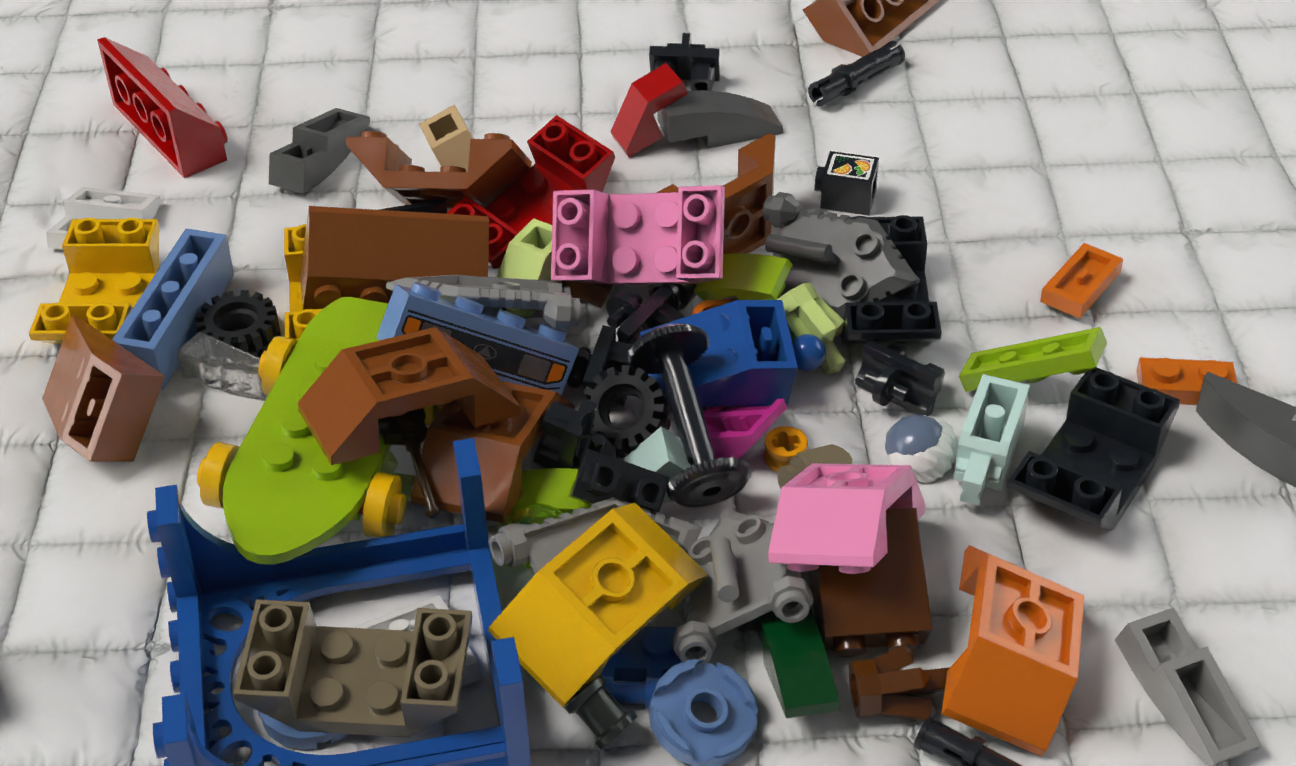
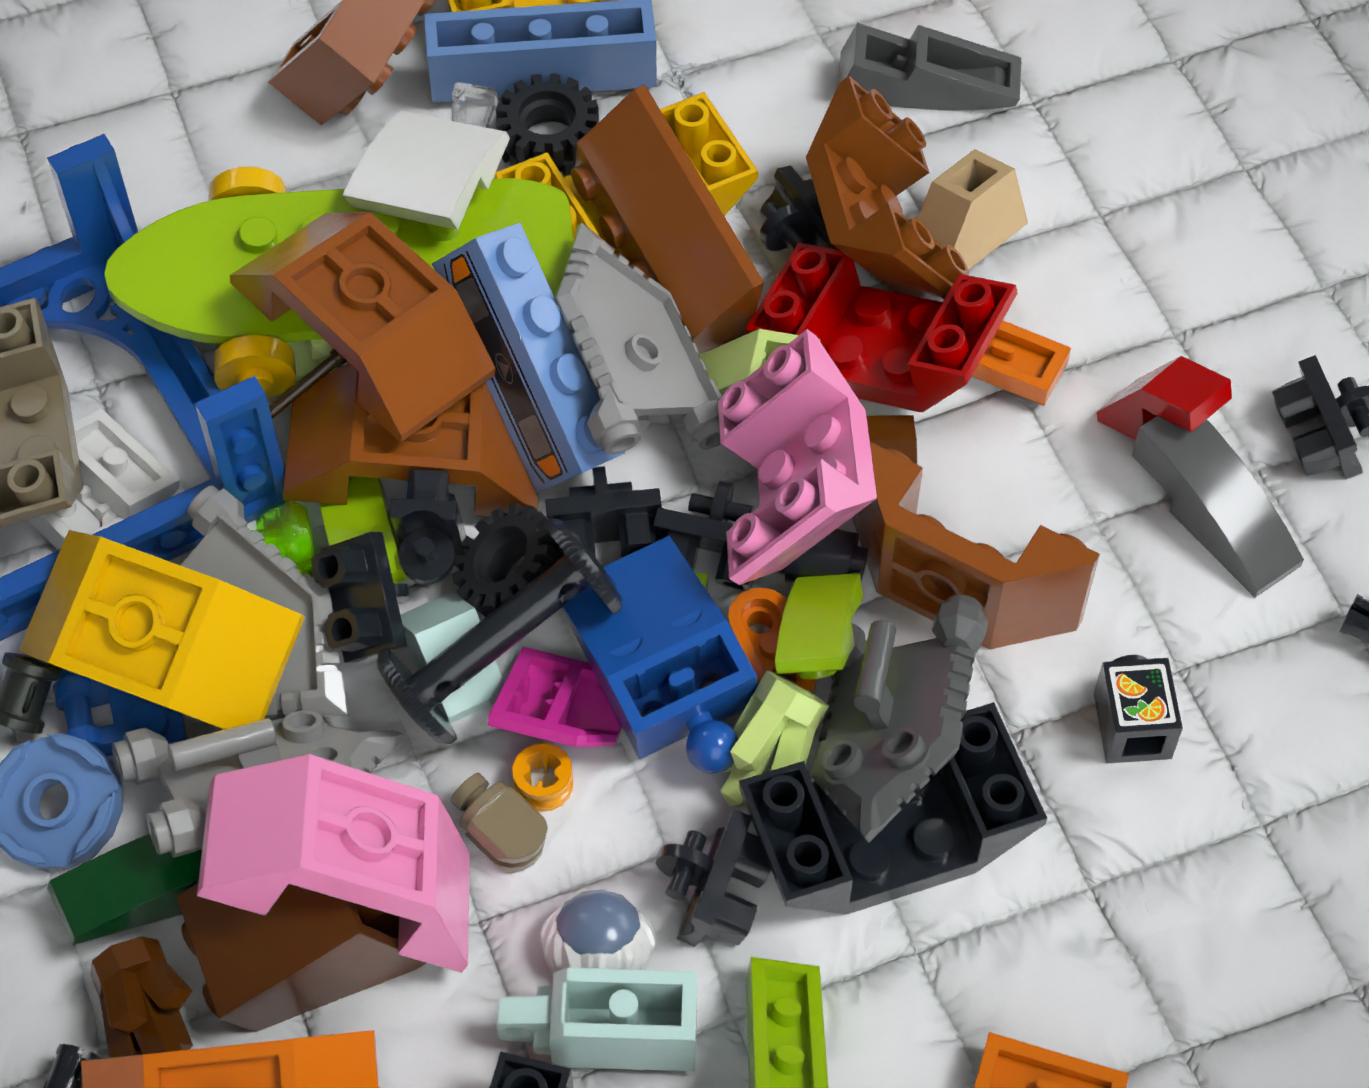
camera: 70 degrees right, 15 degrees up
(287, 346) = (425, 168): none -> white slope

